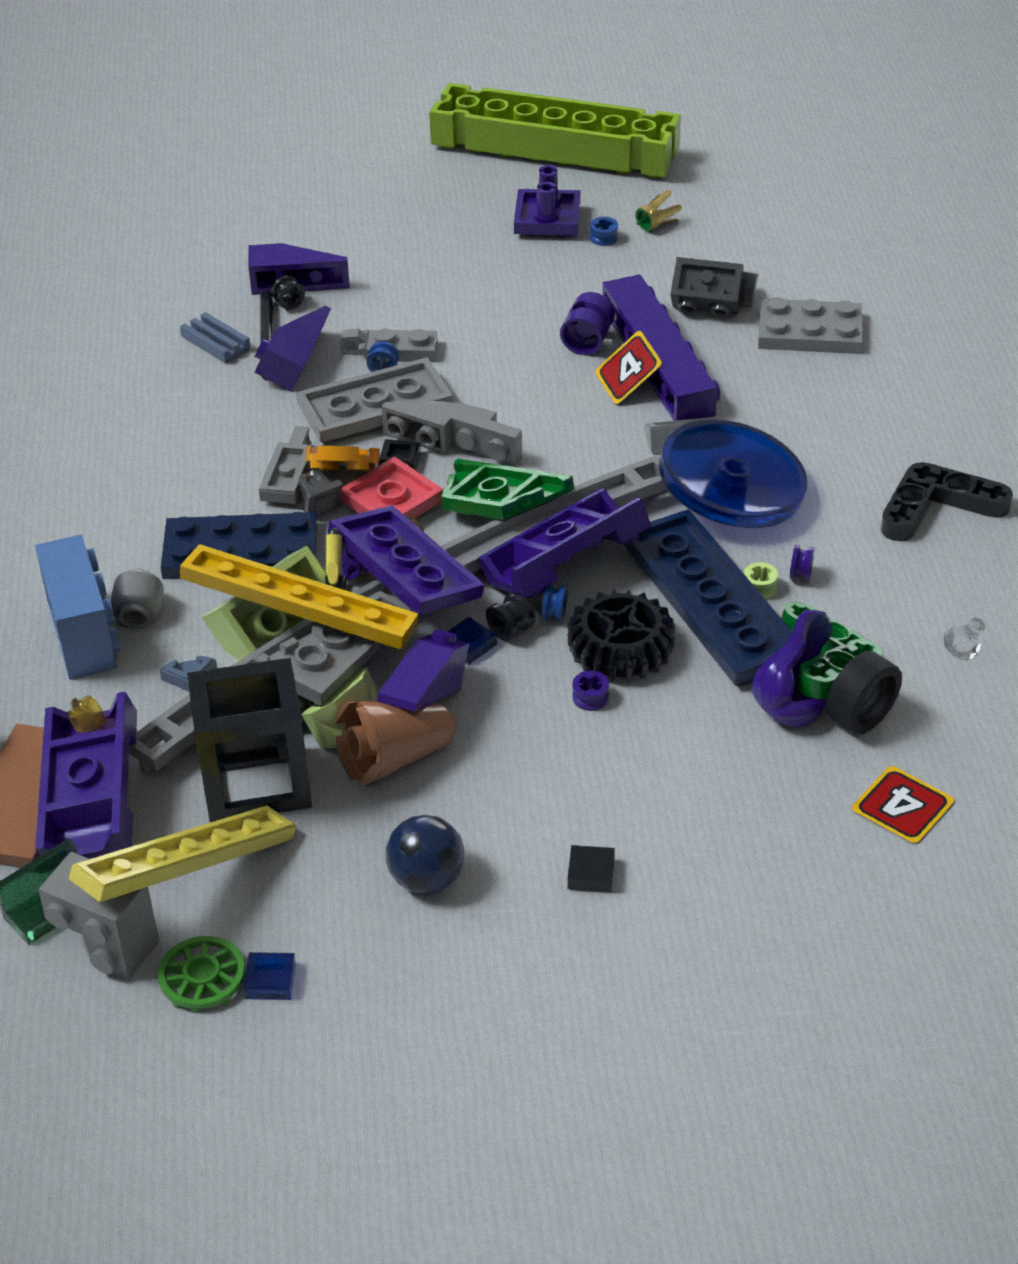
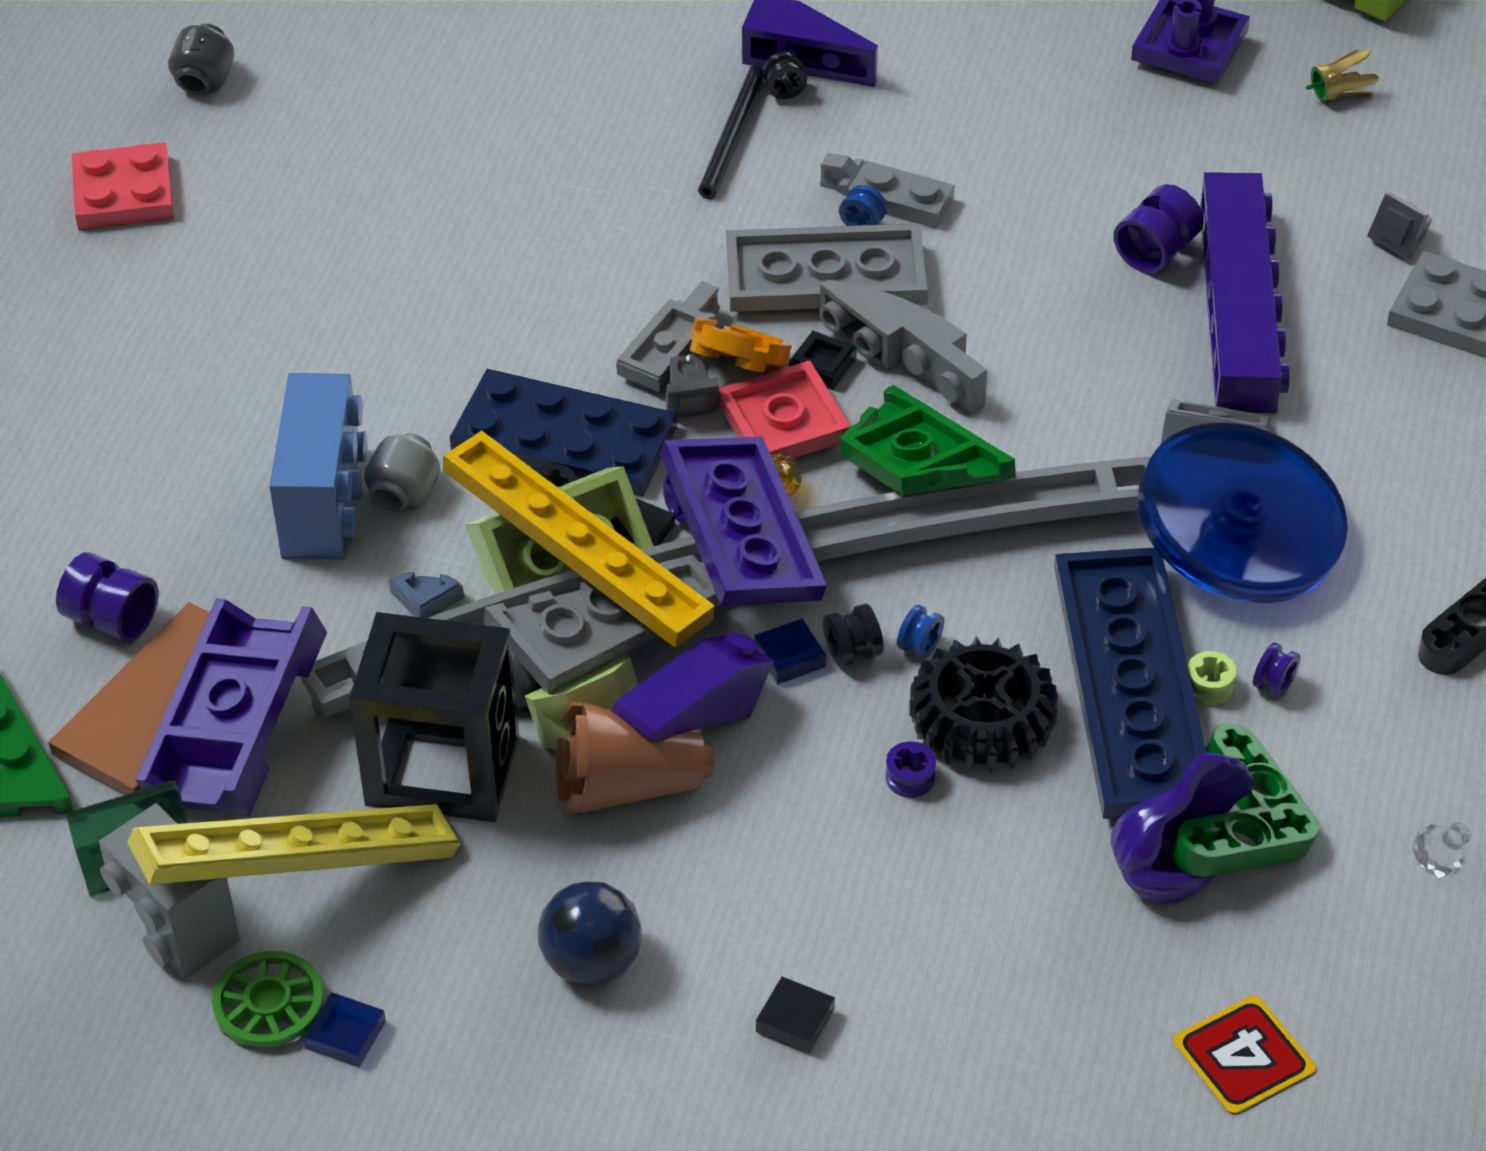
camera: 20 degrees right, 5 degrees up
(86, 714) = (257, 623): clear yellow plate -> none
(220, 335) = (655, 98): sand blue tile -> none
(289, 348) = (746, 162): dark purple slope -> none
(334, 559) = (650, 501): light yellow piece -> none
(528, 559) = (939, 550): dark purple piece -> none
(603, 231) = (1256, 87): blue bush -> none
(628, 367) = (1182, 310): sticker -> none
(706, 286) = (1348, 214): dark grey bracket -> none
(864, 692) = (1232, 889): black tyre -> none

